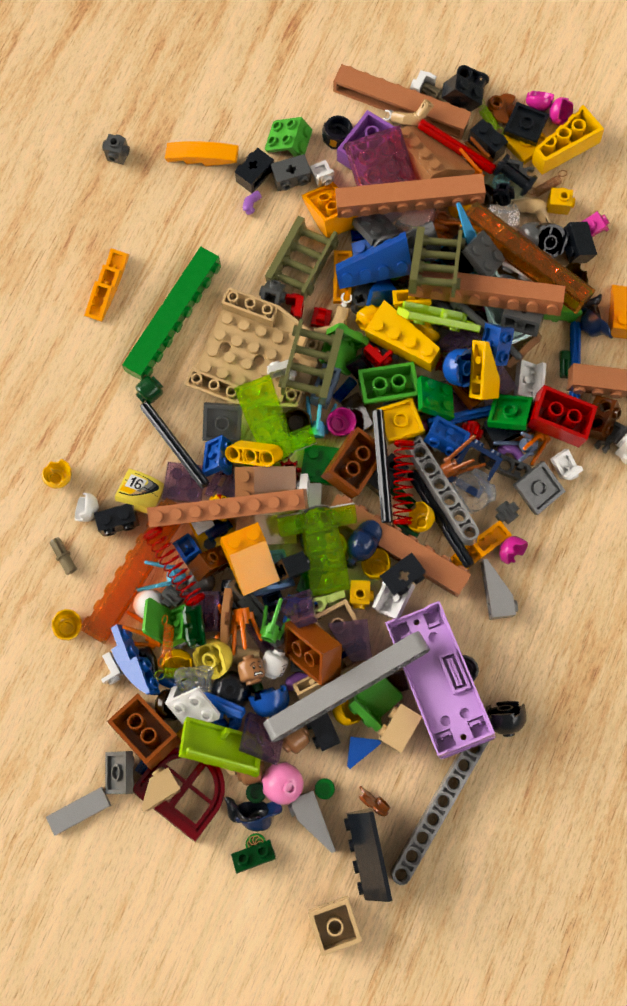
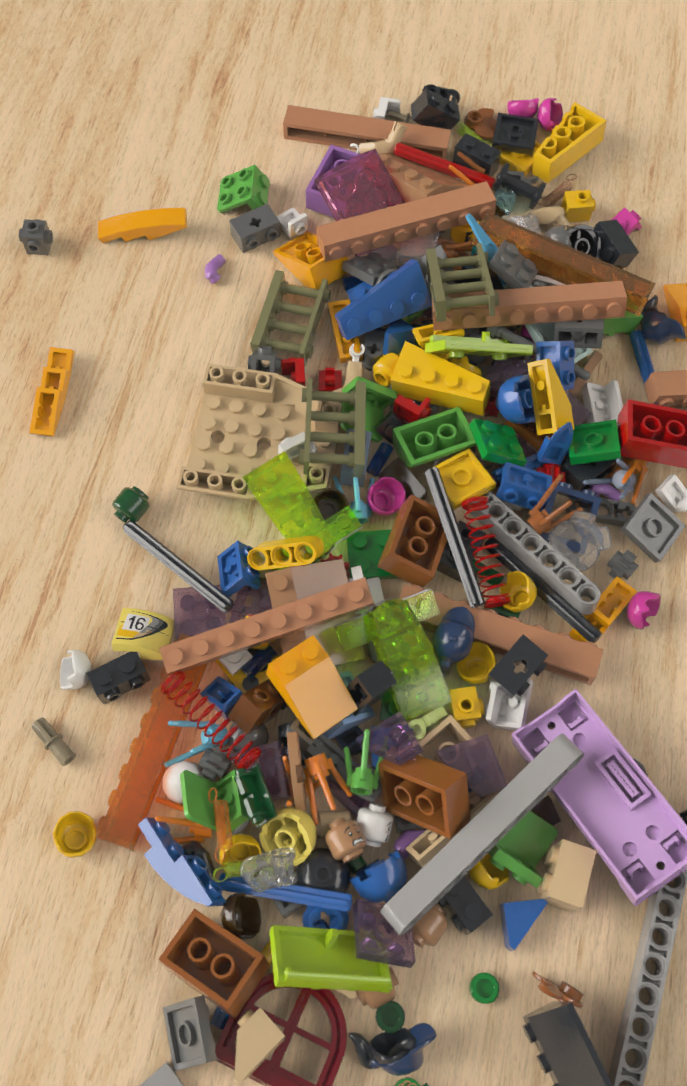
camera: 15 degrees left, 10 degrees down
(57, 474) = (27, 634): yellow hair -> none
(114, 669) = (152, 879): white bracket -> none
(172, 313) = (141, 411): green brick -> none
(191, 704) = (275, 906): white bracket -> none
(222, 420) = (233, 522): dark grey plate -> none
(254, 170) = (210, 233): black brick -> none
(282, 783) = (426, 994): bright pink cylinder -> none
(310, 816) = (473, 1030): light grey slope -> none
(336, 131) = (297, 176): black hat -> none
(479, 410) = (555, 447): none -> blue plate
(498, 596) = (642, 672): light grey slope -> none
(503, 194) = (512, 204): black gear -> none
(565, 363) = (637, 379): dark green piece -> none

